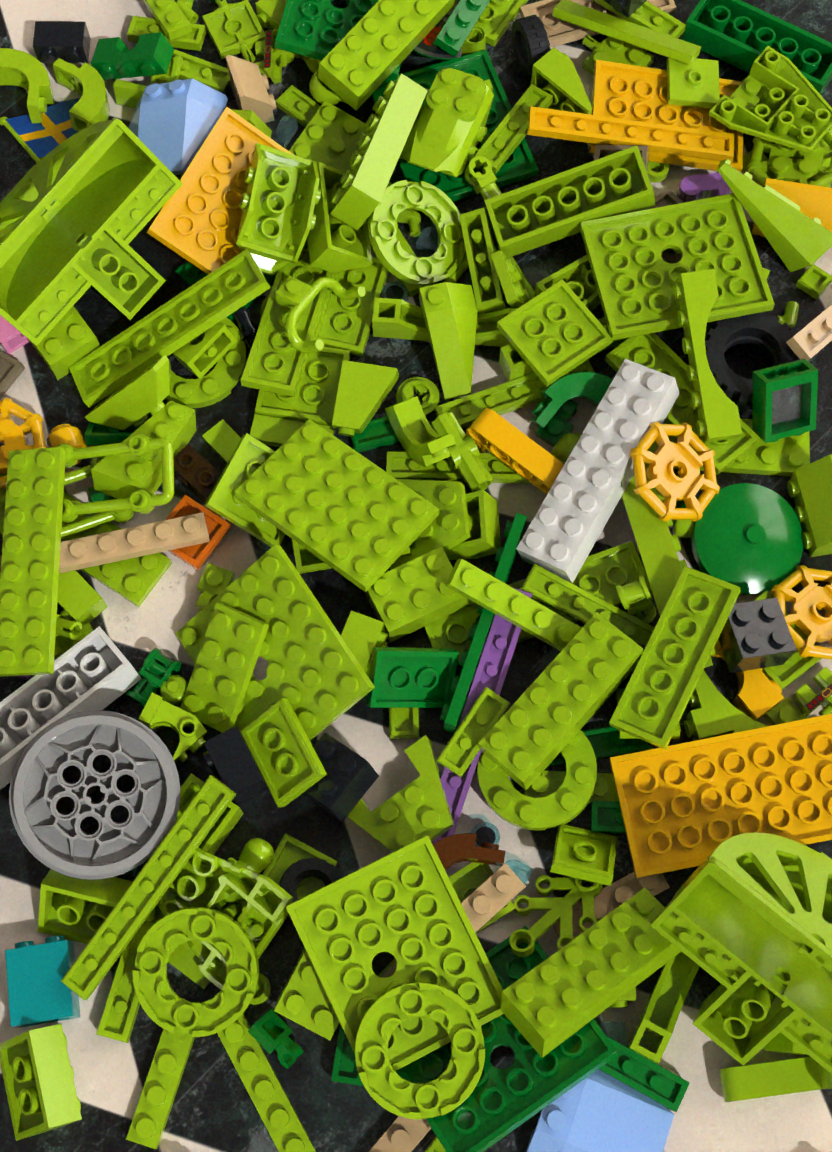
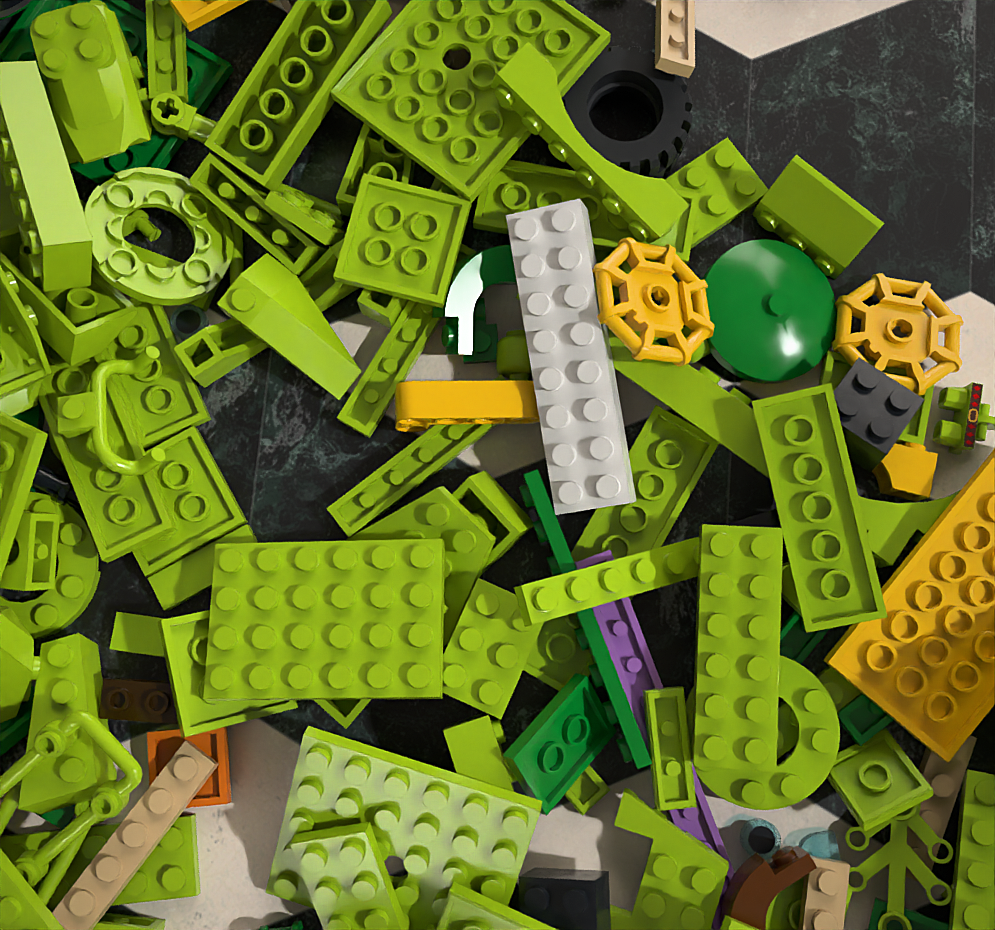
camera: 40 degrees left, 10 degrees up
(212, 584) = (261, 802): lime plate -> none
(360, 395) = (248, 472): lime slope -> none
(375, 435) = (297, 492): green tile -> none
(416, 433) = (346, 467): lime arch -> none
(423, 387) = (305, 403): lime gear -> none
(428, 240) = (175, 232): clear light blue tile -> none
(463, 454) = (409, 449): lime piece -> none
(582, 604) = (677, 514): lime tile -> none
(637, 598) = (716, 468): lime connector -> none
(784, 400) = (699, 132): green window -> none
(784, 712) = (949, 468): lime plate -> none
(790, 314) = (618, 33): lime arm -> none

